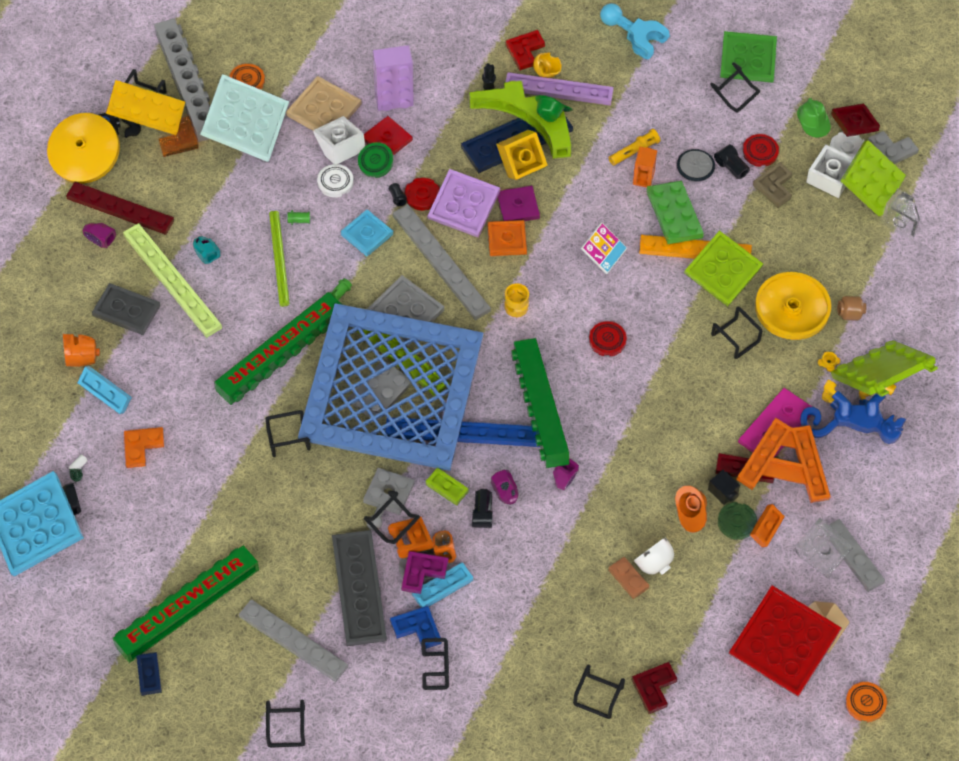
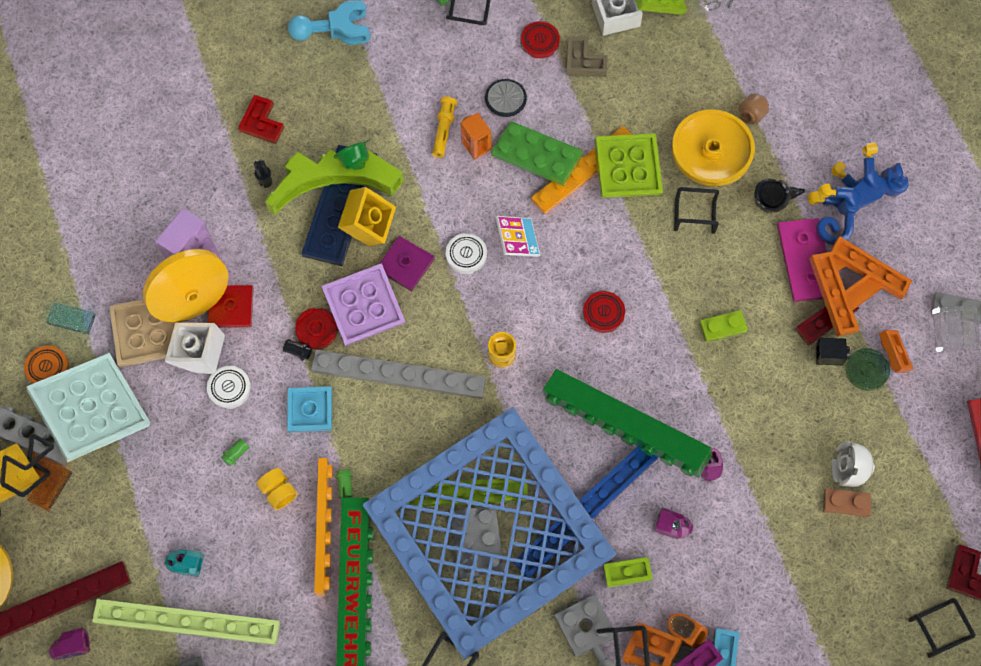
camera: 45 degrees left, 10 degrees up
(184, 114) = (32, 463): none -> black piece
(279, 258) = (259, 506): lime axle -> none
(289, 64) = (71, 318): none -> clear light blue plate
(299, 256) = (275, 486): none -> yellow wheel
(301, 299) = (323, 536): none -> light orange plate
(368, 95) = (185, 285): none -> yellow dish
(375, 160) = (244, 335): green tile -> none
(408, 301) = (414, 442): light grey plate -> none
(482, 511) = (683, 568): black piece -> none
(507, 238) = (430, 301): orange plate -> none
(546, 65) = (297, 119): yellow hair -> none
(562, 231) = (466, 253): none -> white tile
(563, 89) = (329, 129): lavender plate -> none
(674, 413) = (723, 326): none -> lime plate
(691, 508) = (831, 395): orange piece -> none
(729, 158) = (526, 68): black piece -> none
(799, 368) = (778, 195): none -> black hair
(829, 356) = (783, 163): yellow plate -> none
(883, 368) = (843, 136): lime plate -> none

